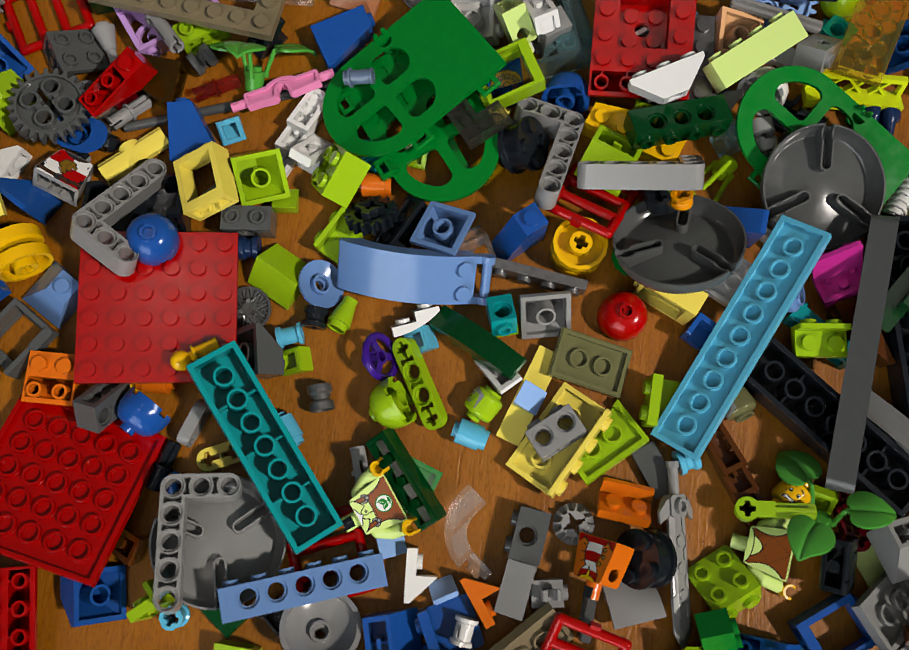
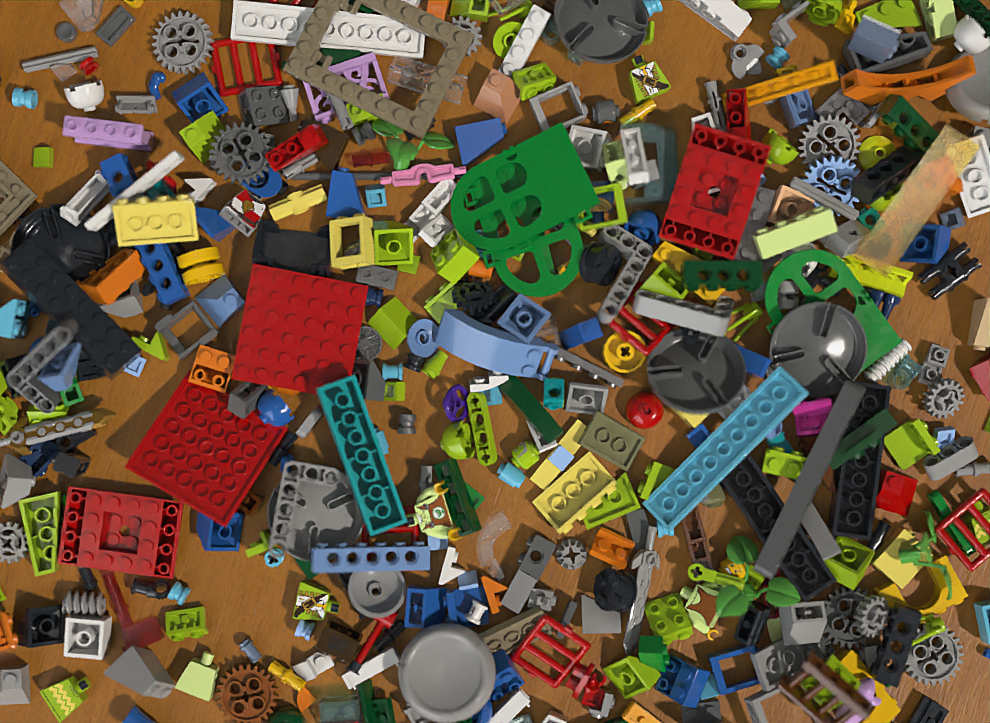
camera: 10 degrees right, 10 degrees up
(110, 208) = (279, 251): light grey beam -> none
(153, 238) = (305, 282): blue cylinder -> none
(181, 358) = (312, 379): yellow pin -> none
(217, 464) = (324, 455): light yellow beam -> none
(358, 77) = (484, 182): sand blue pin -> none
(478, 127) = (569, 245): clear smoke plate -> none
(560, 438) = (574, 494): light grey brick -> none
(600, 563) = (582, 587): orange torso -> none
(669, 79) = (720, 245): white slope -> none
(681, 199) = (707, 340): light orange bush -> none

